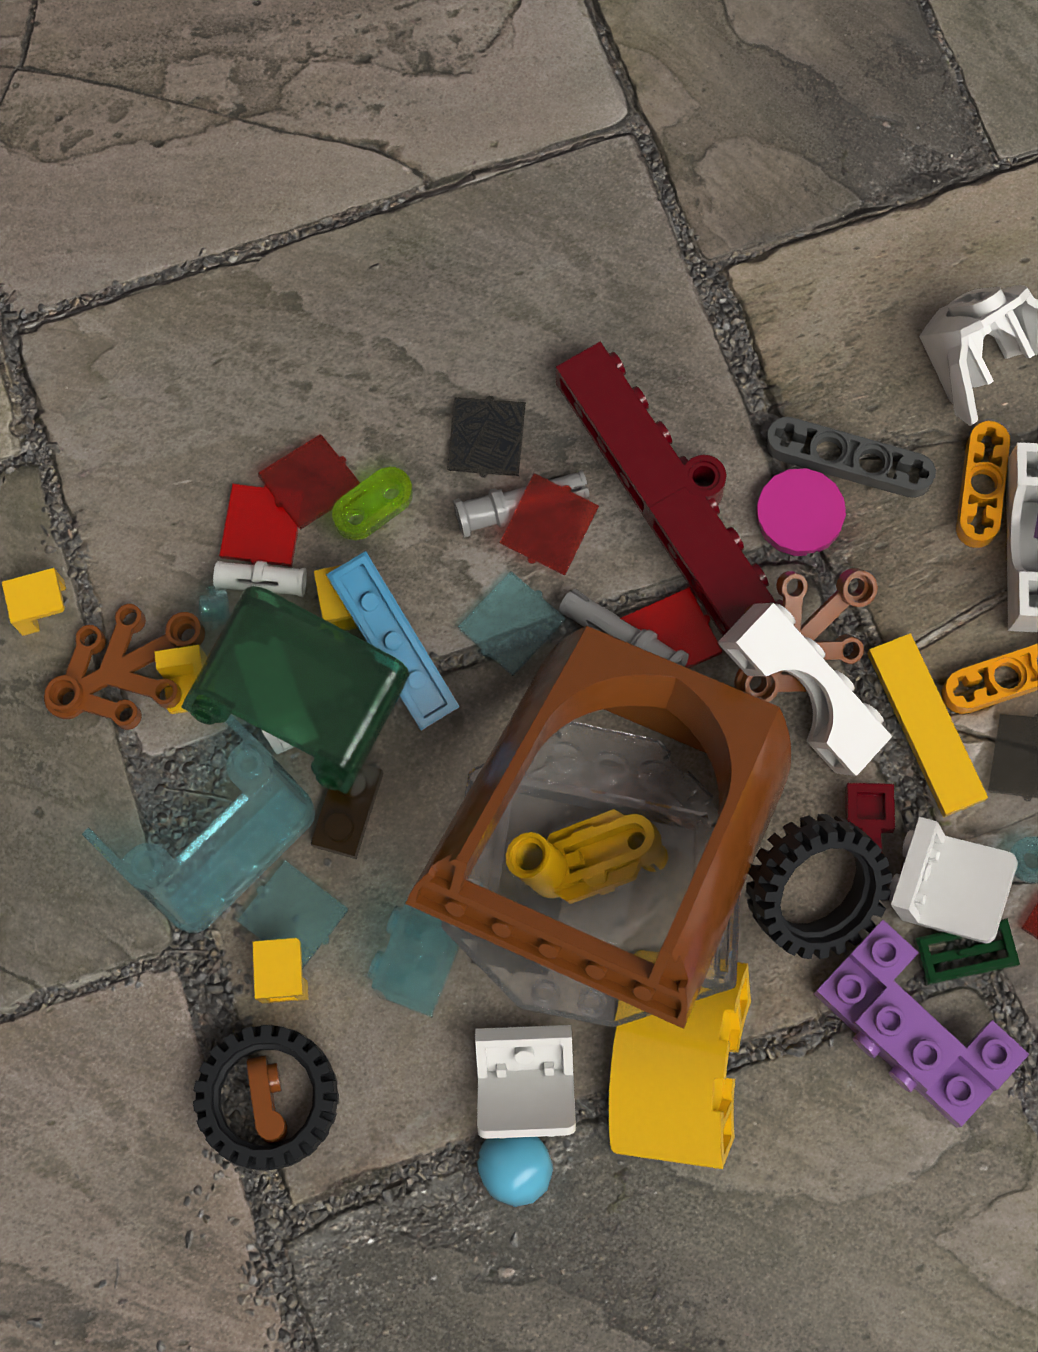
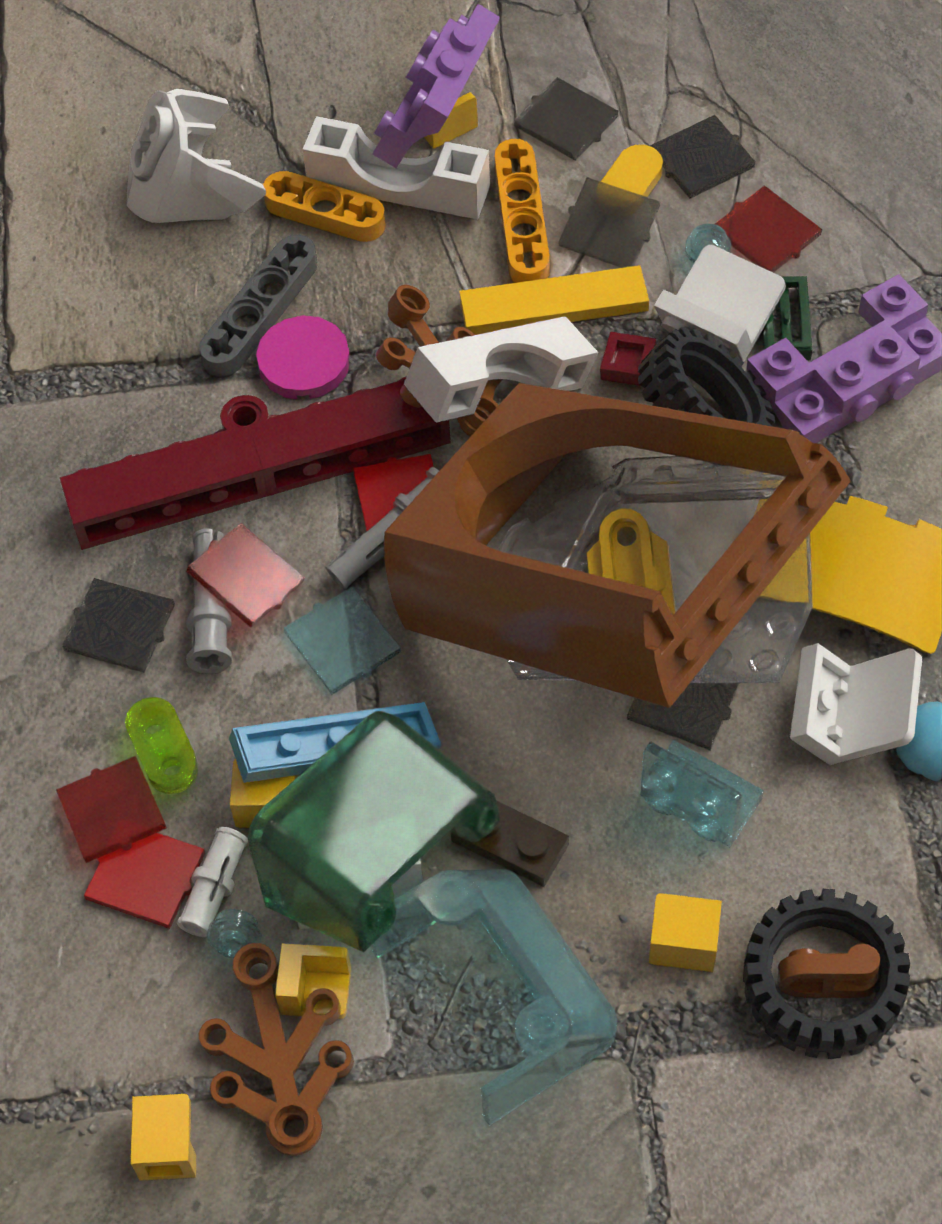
camera: 80 degrees left, 15 degrees down
(293, 909) = (613, 919): clear light blue piece -> none

